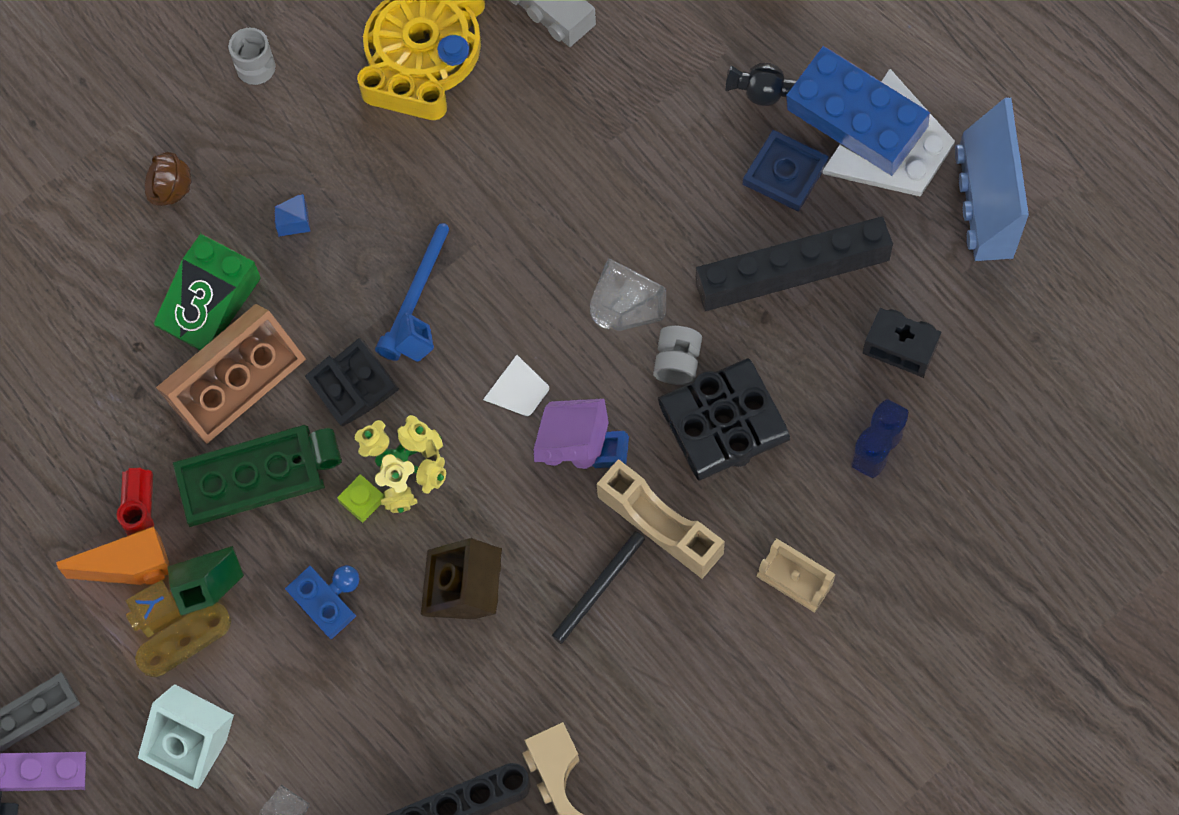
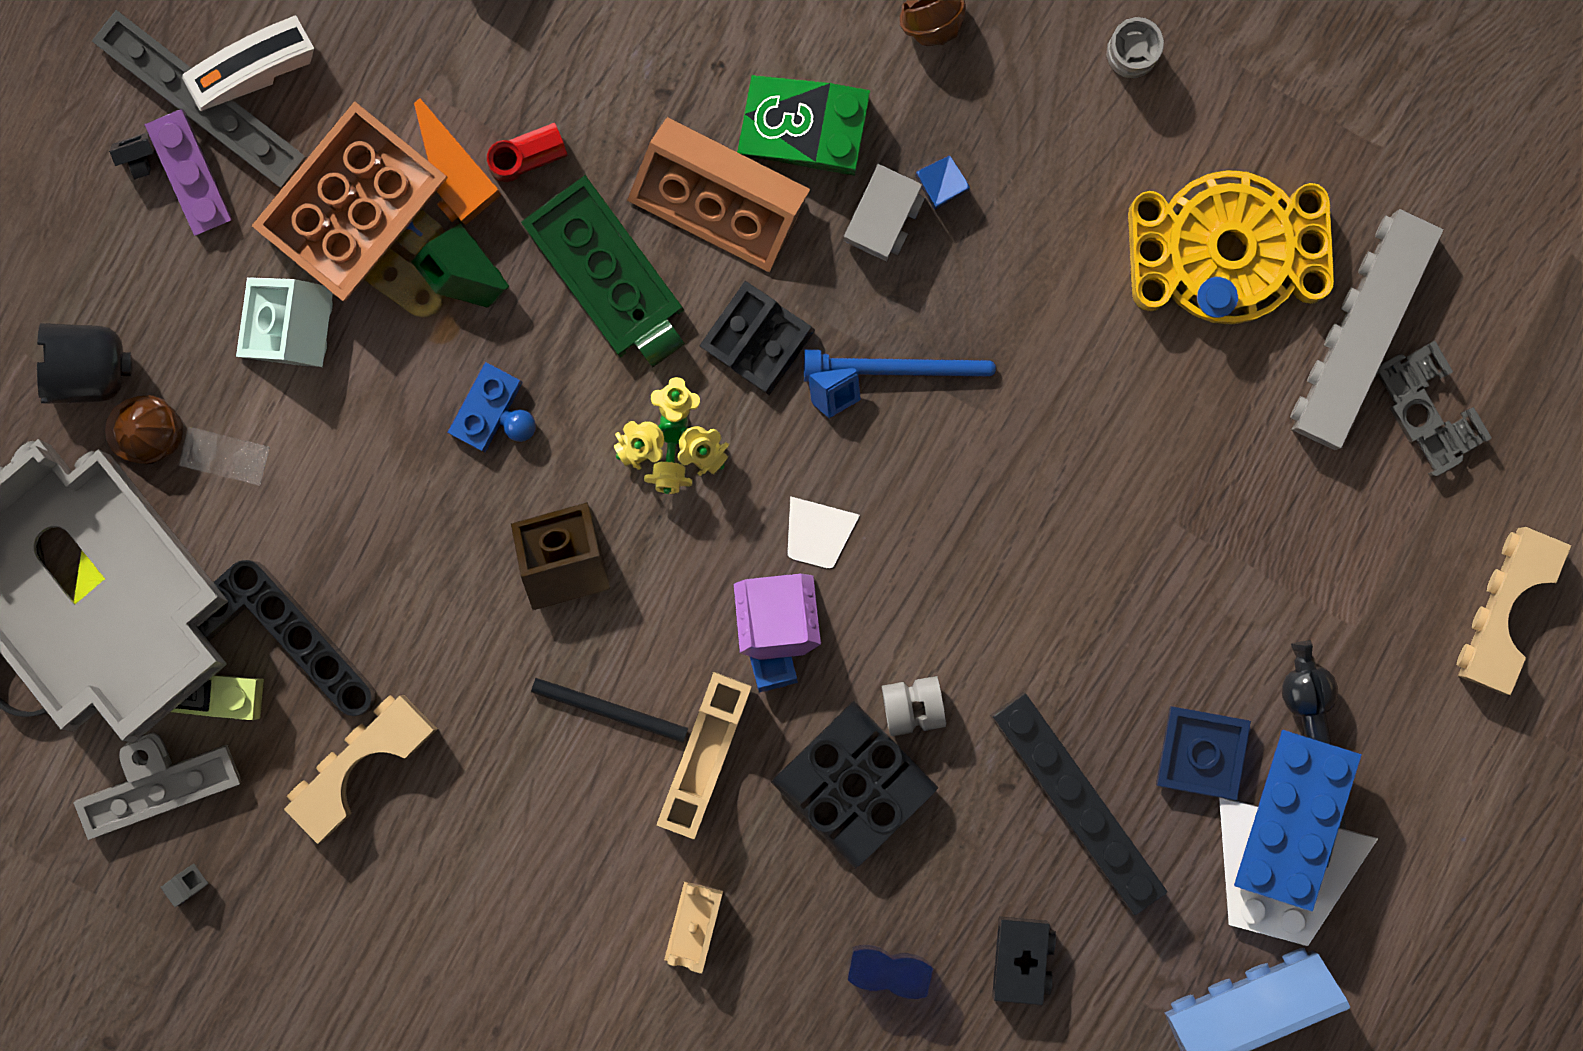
camera: 70 degrees right, 20 degrees up
(112, 644) = (349, 201): none -> nougat slope
(296, 259) = (883, 213): none -> light grey brick
(361, 498) = (621, 403): lime plate -> none
(626, 299) = (958, 620): clear slope -> none

